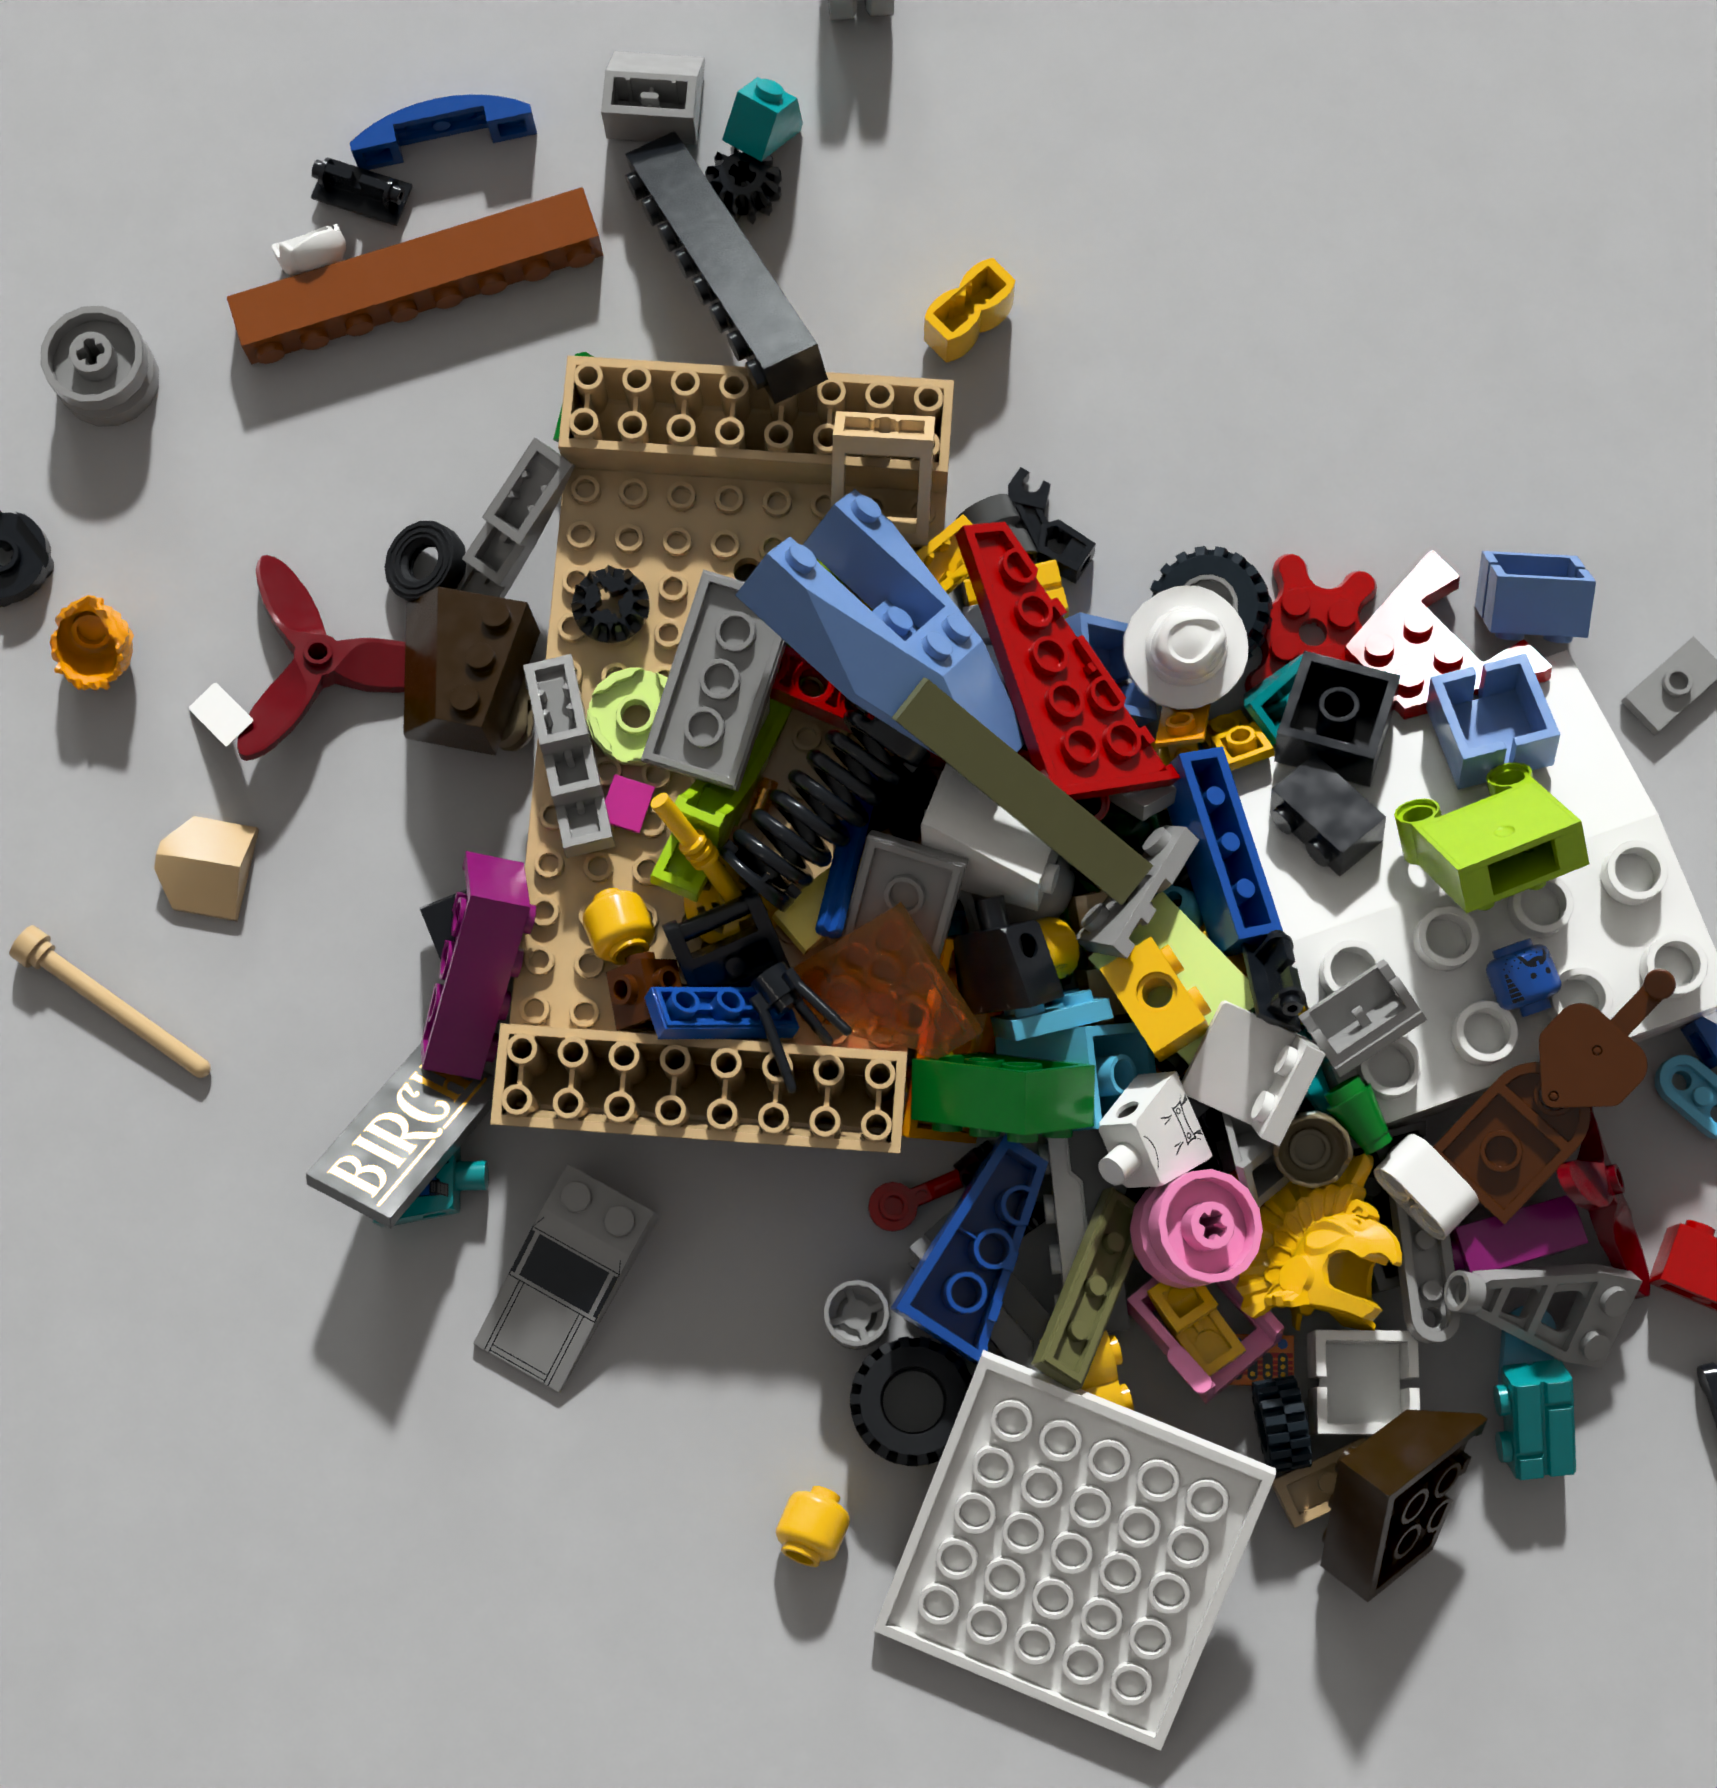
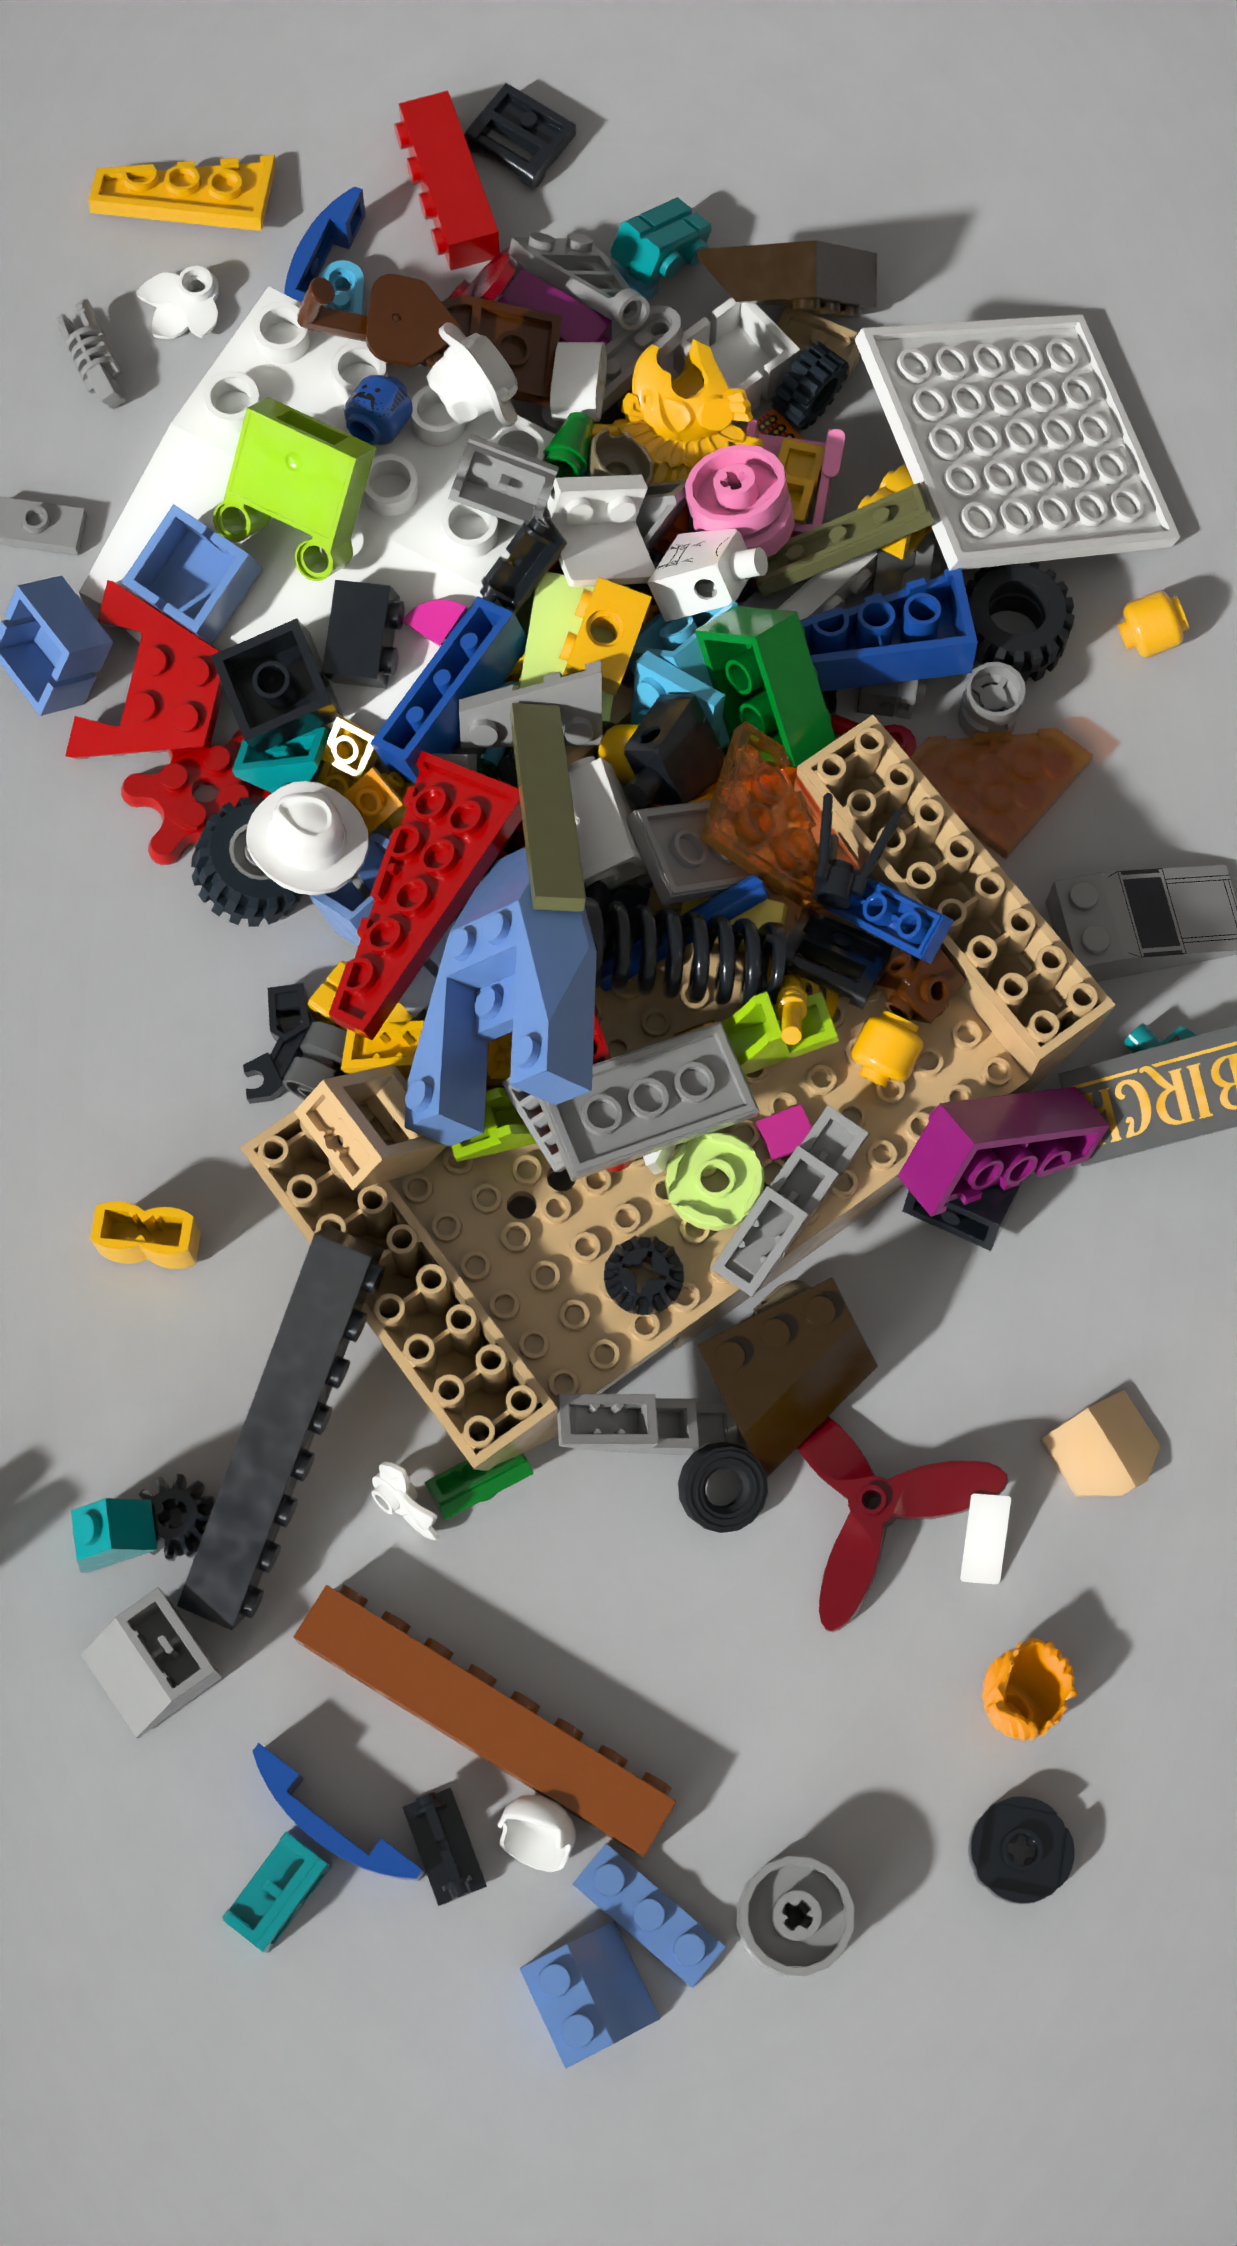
camera: 135 degrees left, 5 degrees down
(180, 200) = (589, 1994): none -> medium blue slope
(191, 284) = (649, 1915): none -> medium blue plate
(428, 55) = (276, 1892): none -> teal hinge
(624, 339) = (397, 1494): none -> white plate
(788, 1262) = (1001, 779): none -> clear orange plate
(1290, 883) = (435, 619): none -> dark pink tile
(1479, 1064) = (473, 378): none -> white hat

